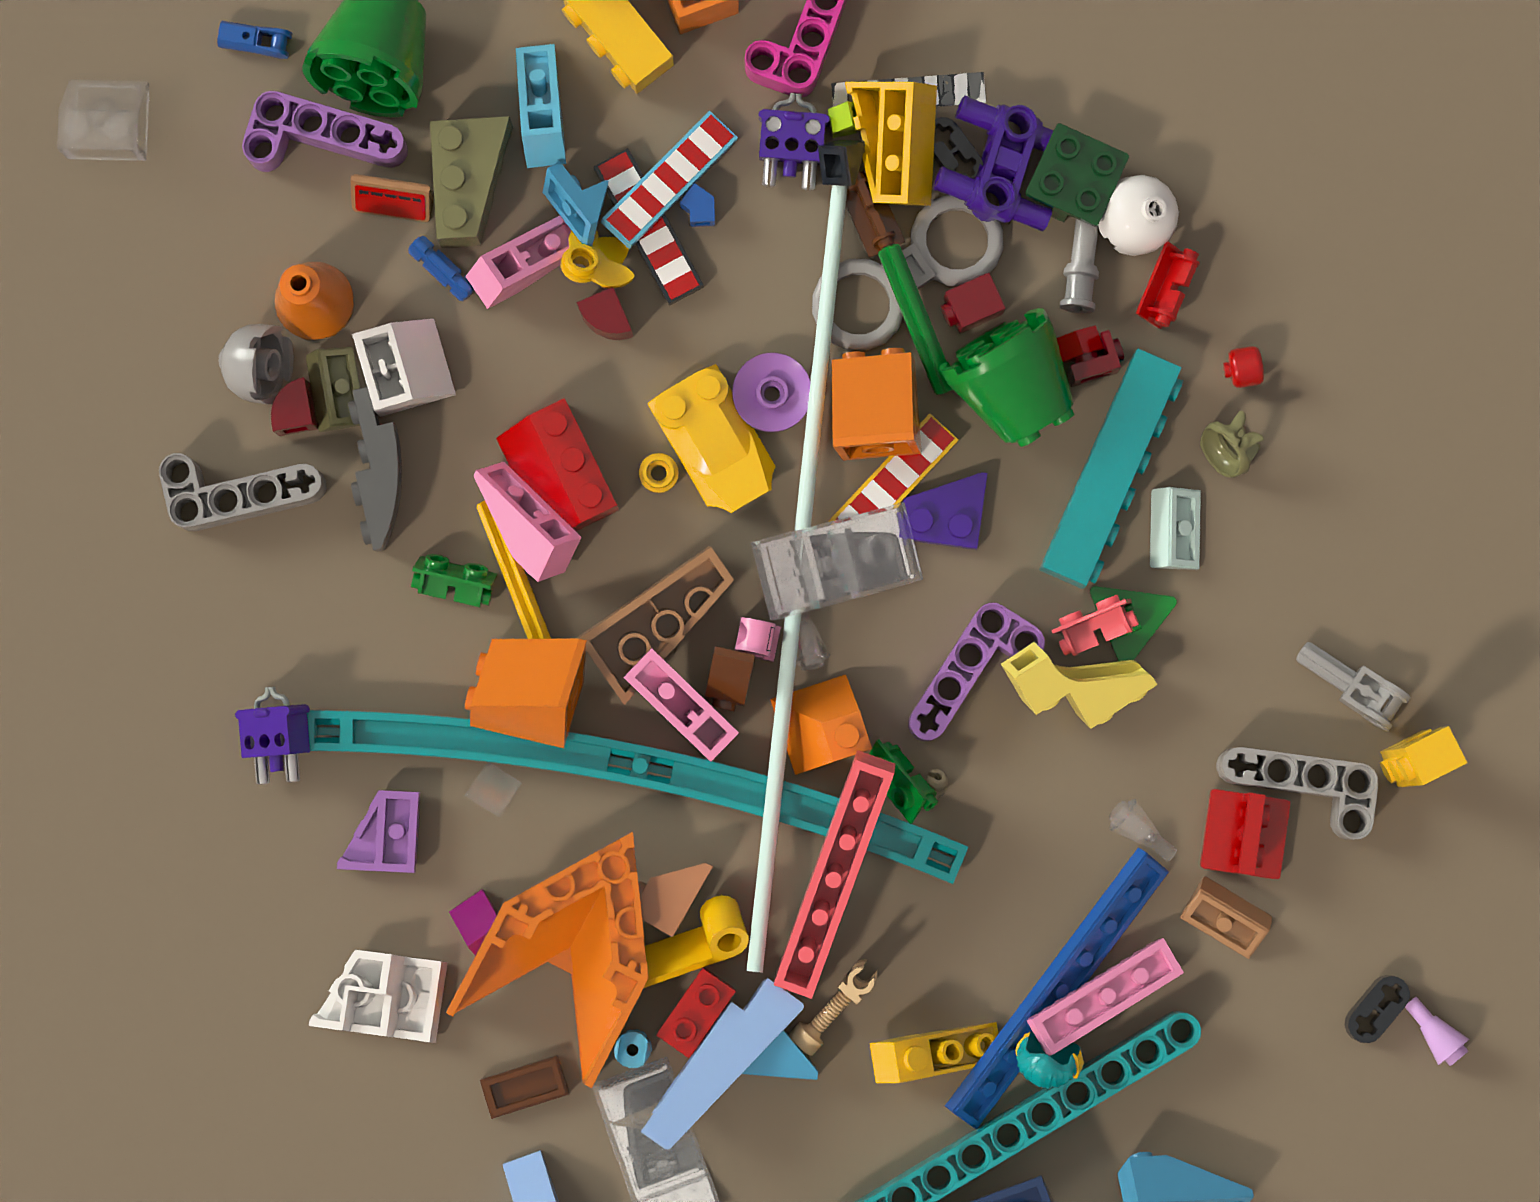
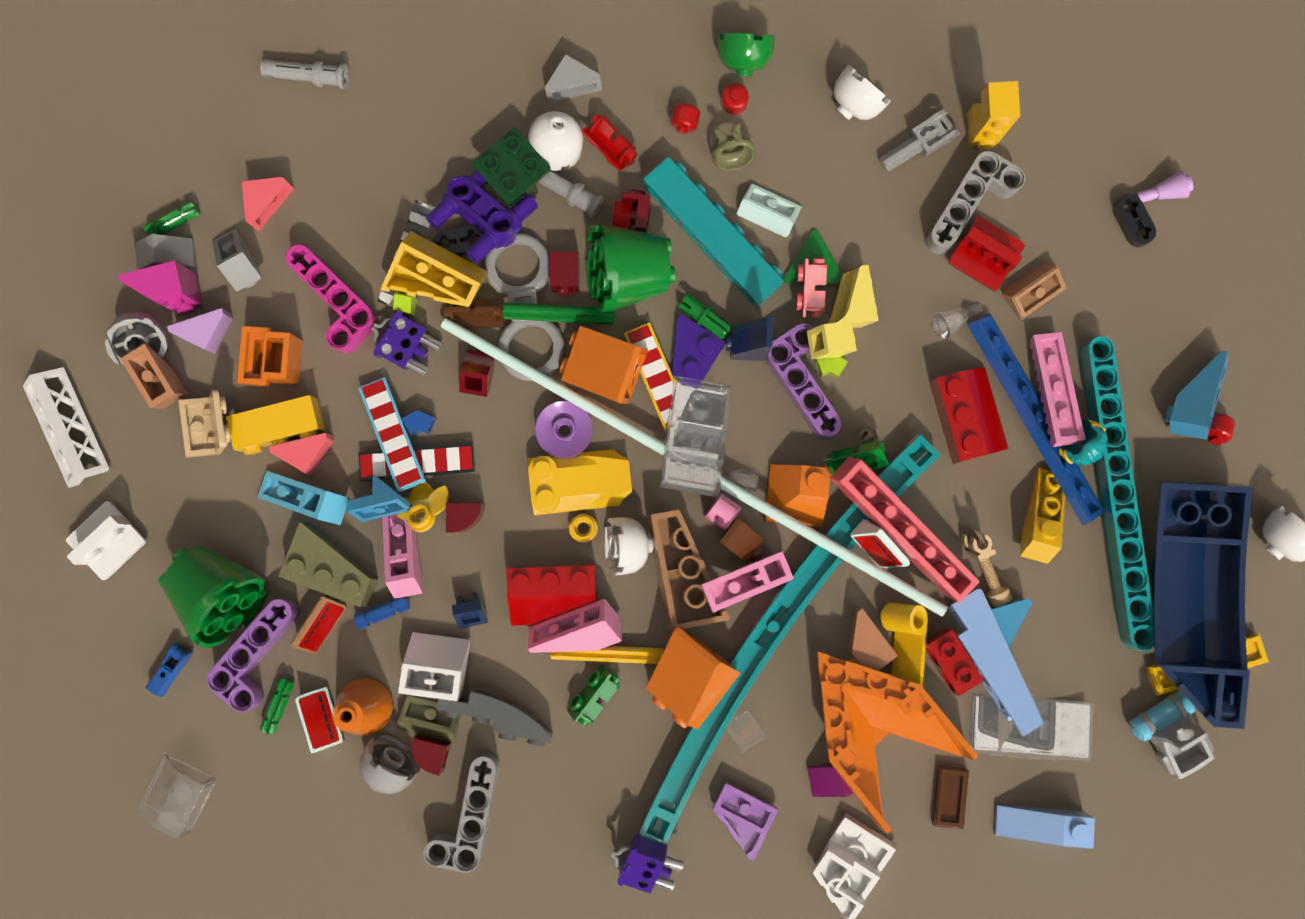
camera: 60 degrees left, 0 degrees up
(268, 192) = (276, 705): none -> green axle
(275, 251) = (317, 720): none -> red slope
(488, 377) = (469, 613): none -> dark blue tile
(596, 82) = (304, 453): none -> coral slope
(635, 1037) = (953, 707): medium azure piece -> none
(660, 536) = (626, 545): none -> white cylinder
(794, 250) = (476, 373): none -> dark red brick
(800, 853) = (878, 546): none -> slope
(840, 161) = (432, 316): black slope -> none
(989, 575) = (751, 340): none -> dark blue slope
(998, 507) = (705, 316): none -> green axle
(1007, 698) = (830, 366): none -> lime piece
(1024, 902) = (968, 415): none -> red slope
(1227, 198) = (572, 80): none -> light grey slope
(1301, 420) = (734, 98): none -> red piece
(1366, 405) = (745, 52): none -> green cylinder
(1375, 576) = (858, 96): none -> white cylinder

